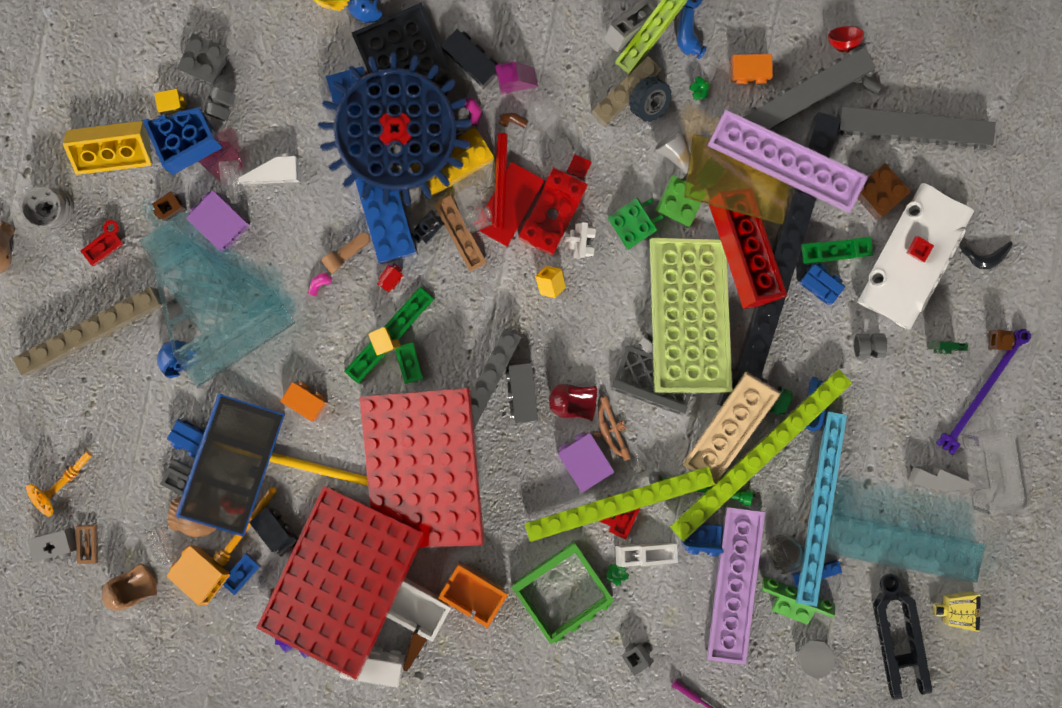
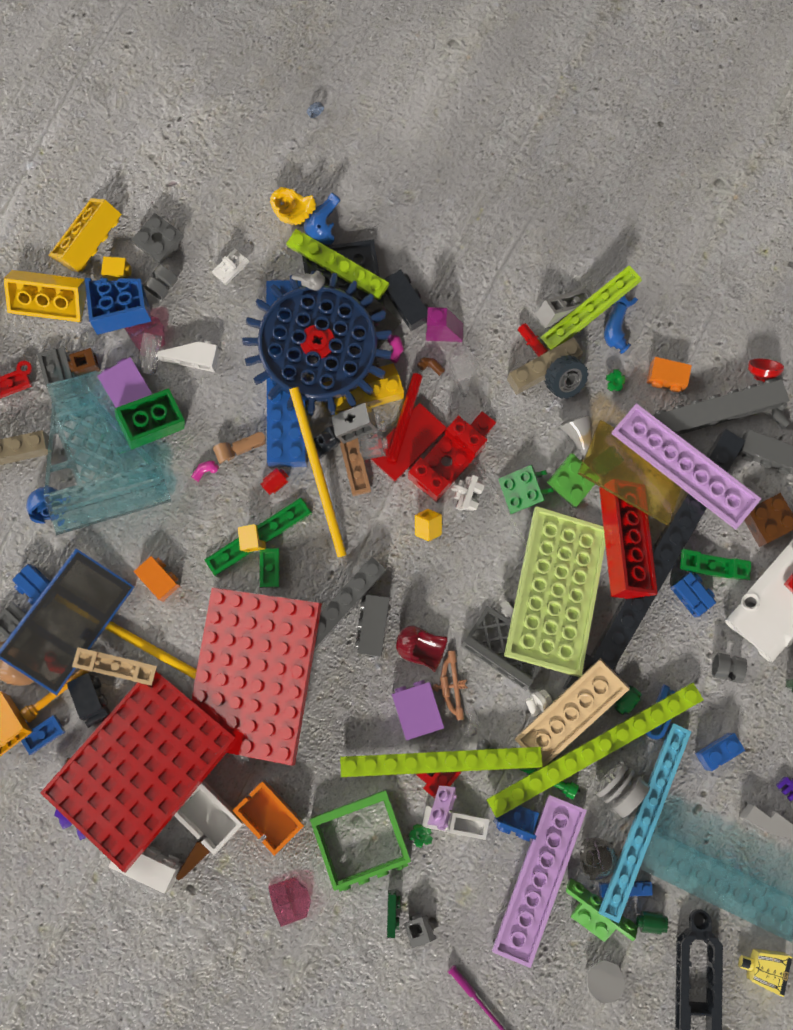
camera: 15 degrees right, 10 degrees down
(128, 73) = (85, 234): none -> yellow slope
(140, 217) = (54, 365): none -> dark grey plate
(251, 248) = (149, 418): none -> green brick
(285, 69) = (230, 266): none -> white hips
(289, 494) = (114, 666): none -> tan slope
(373, 68) = (311, 281): none -> light grey piece
(392, 39) = (337, 264): none -> lime plate
(430, 258) = (317, 471): none -> yellow piece
(453, 201) = (354, 422): none -> dark grey brick
(512, 662) = (289, 900): none -> clear pink slope
(607, 67) = (532, 340): none -> red axle
(611, 657) = (392, 920): none -> dark green plate
(630, 540) = (443, 803): none -> lavender hinge
(697, 424) = (538, 702): none -> white piece
(795, 486) = (627, 793): none -> light grey wheel
(847, 596) = (652, 922): none -> dark green brick
(877, 426) = (720, 751): none -> blue brick

